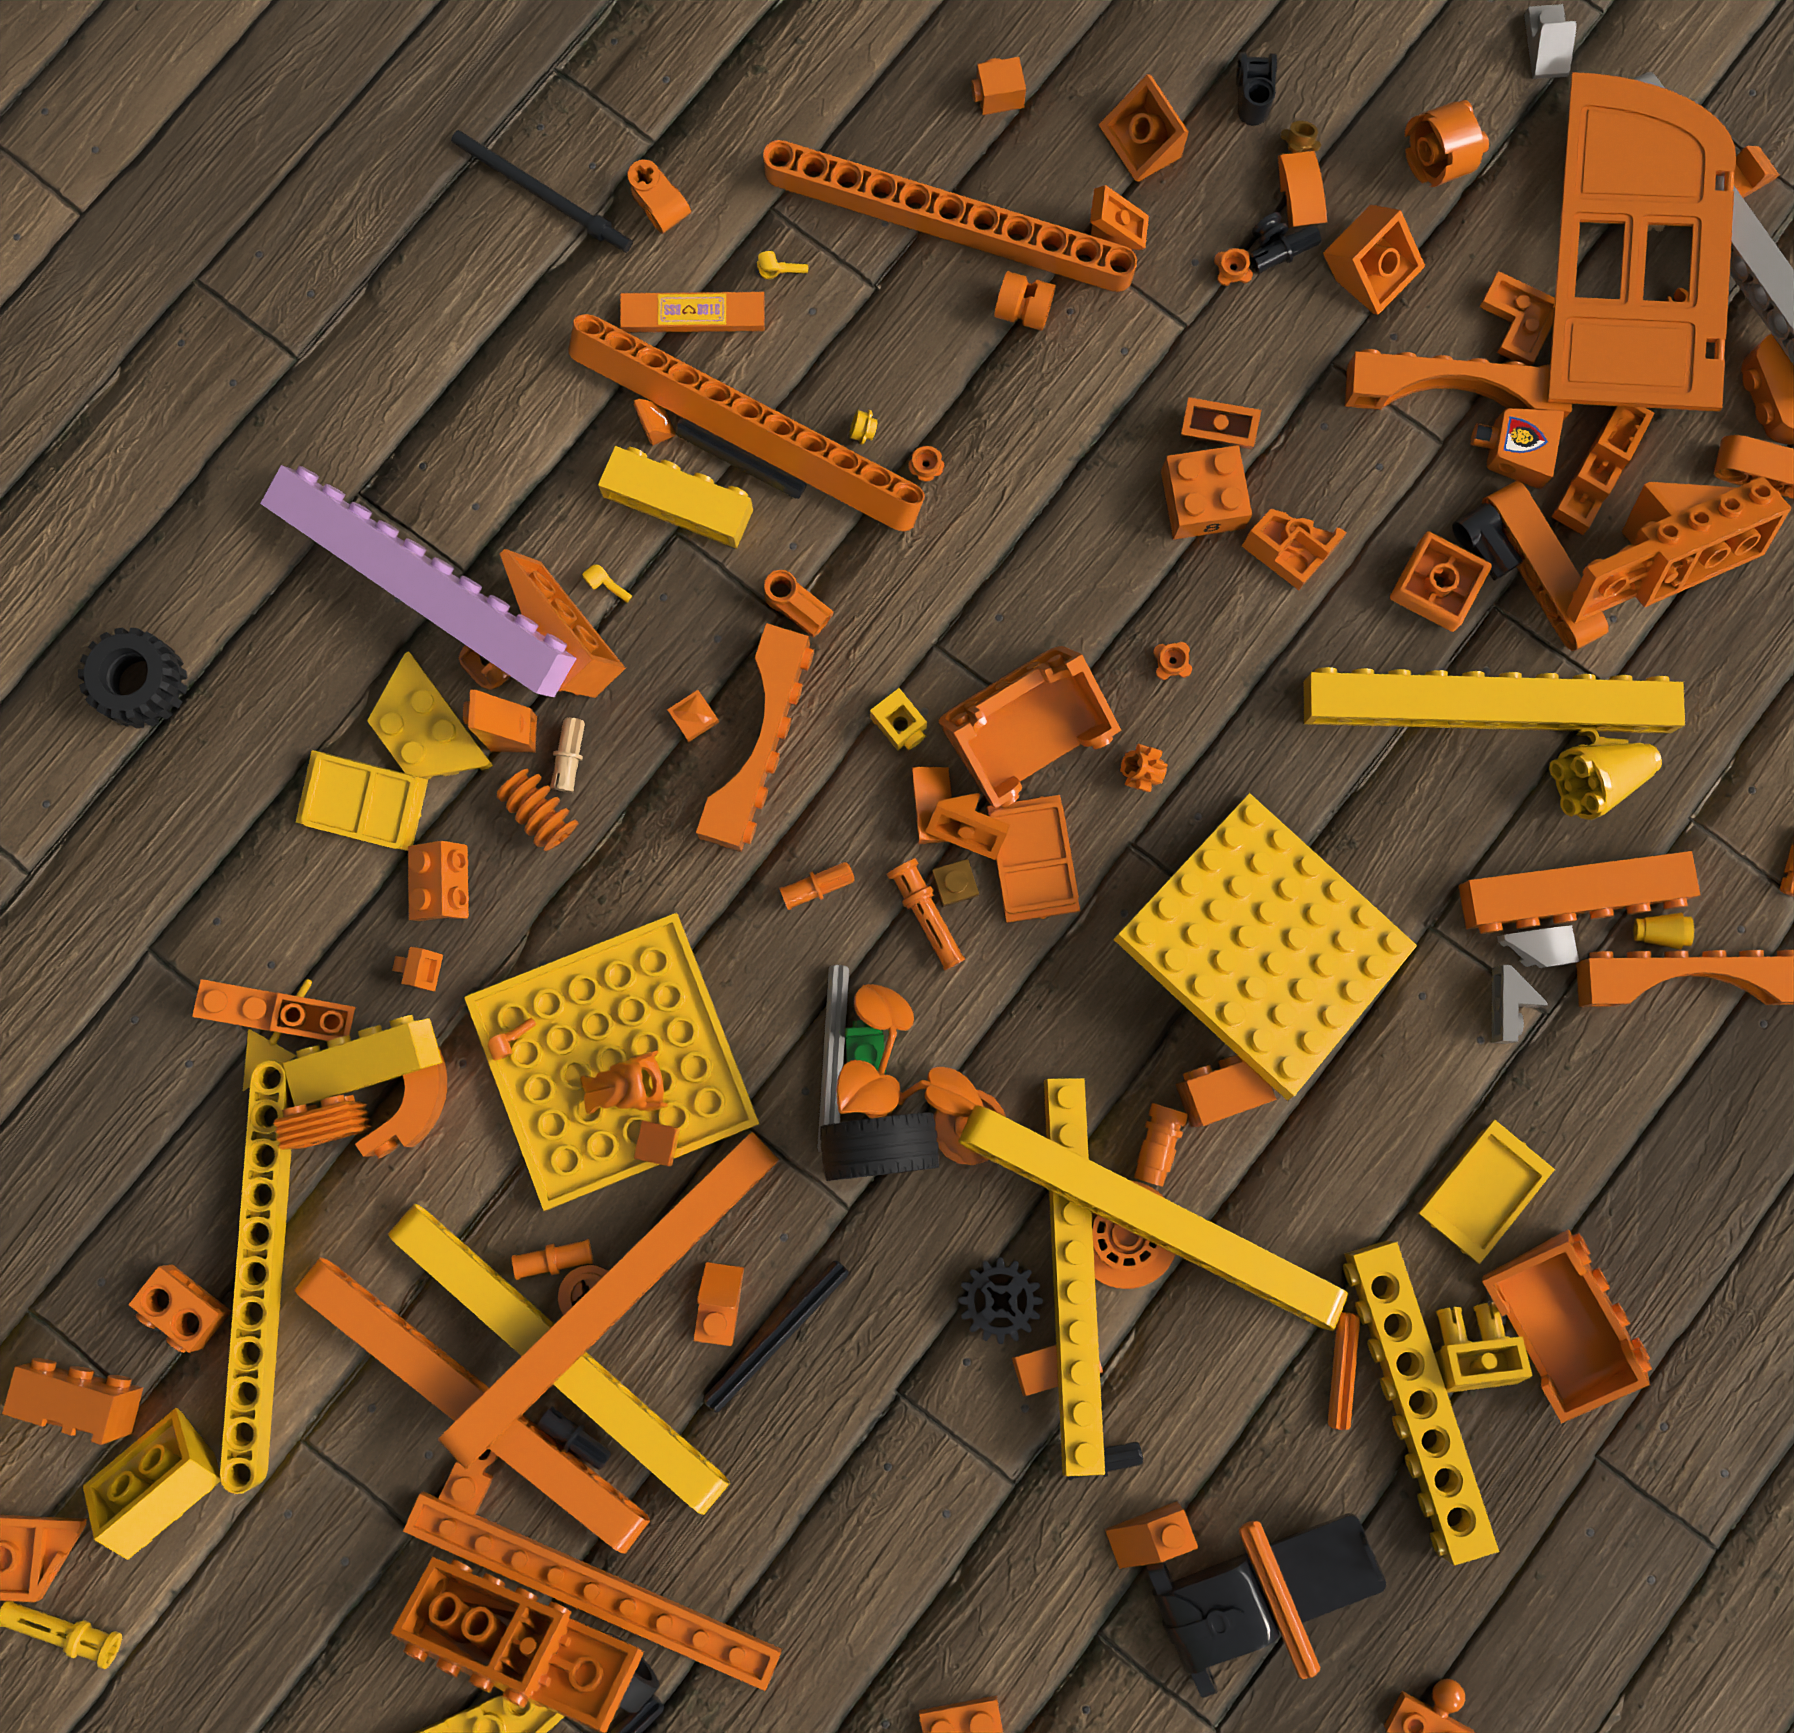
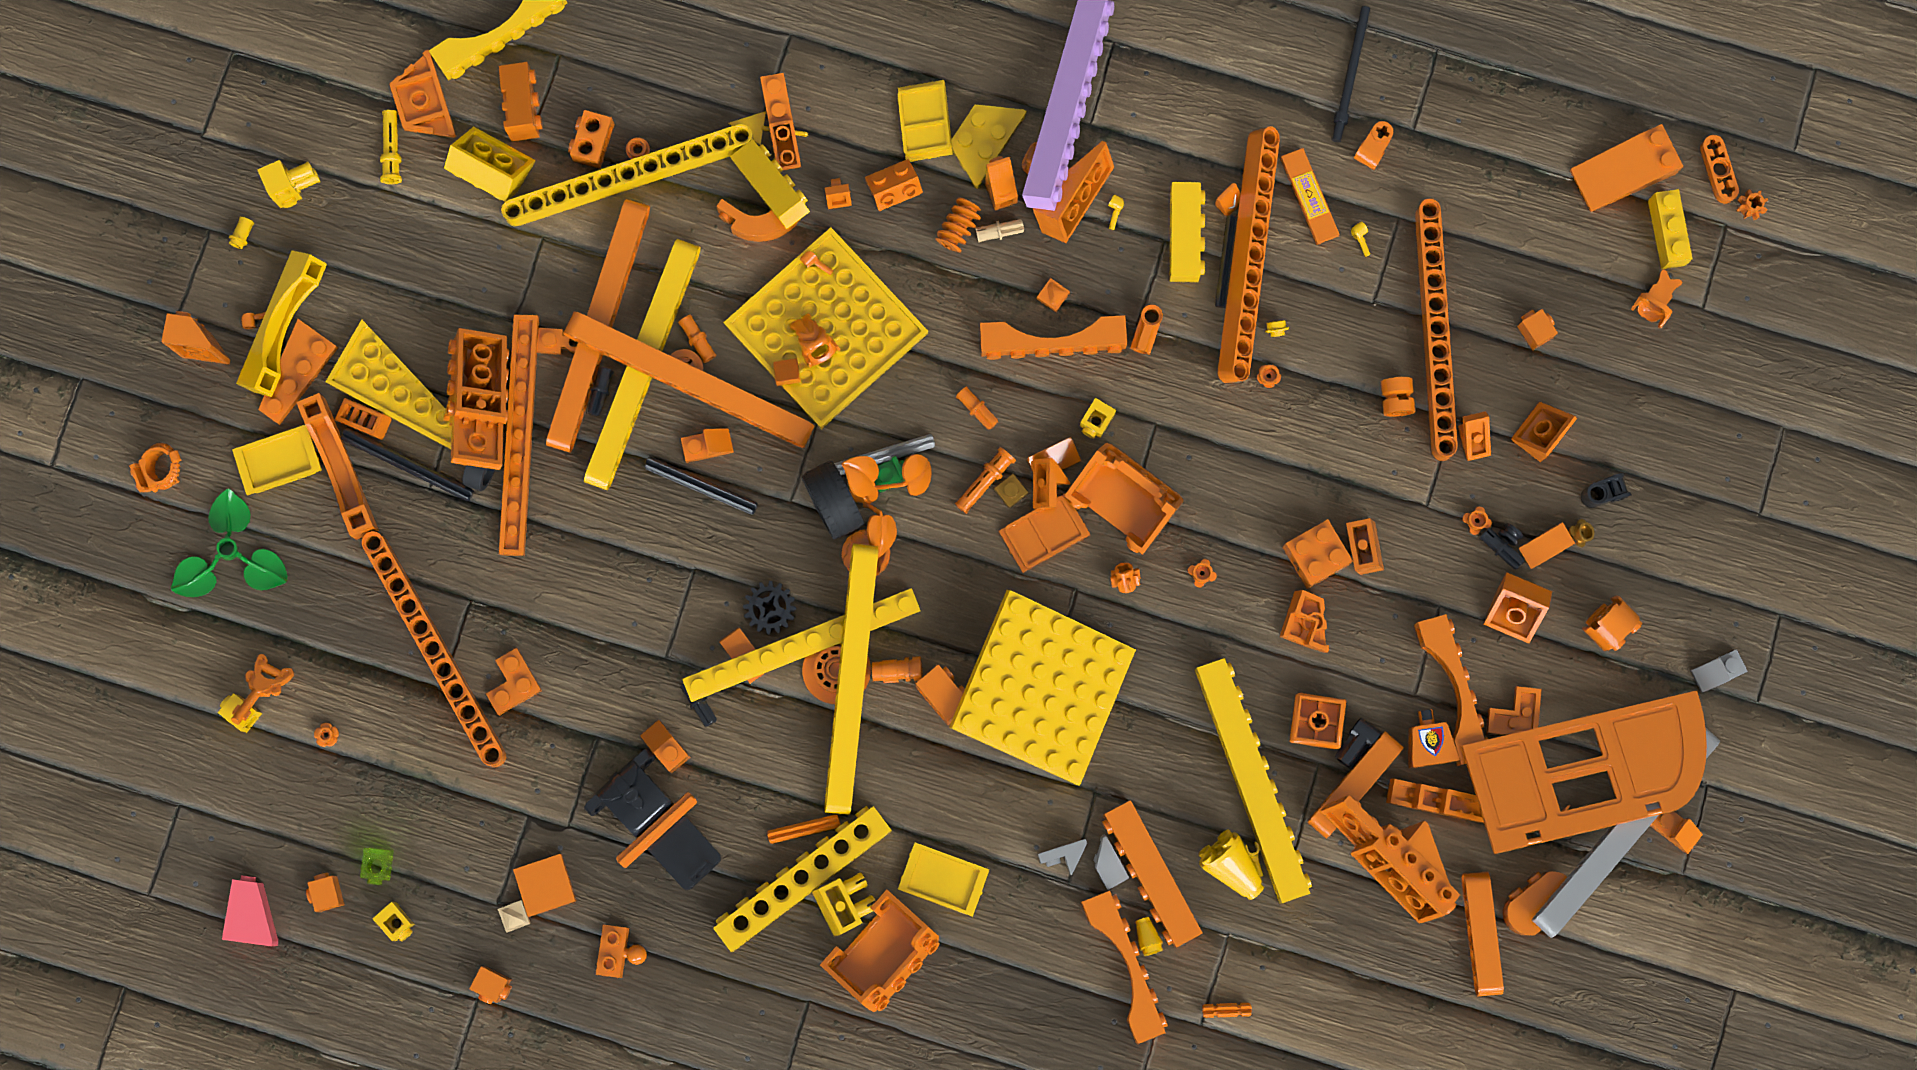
camera: 70 degrees right, 0 degrees up
(214, 1243) = (637, 142): none -> orange plate
(310, 1126) = (731, 182): orange brick -> none

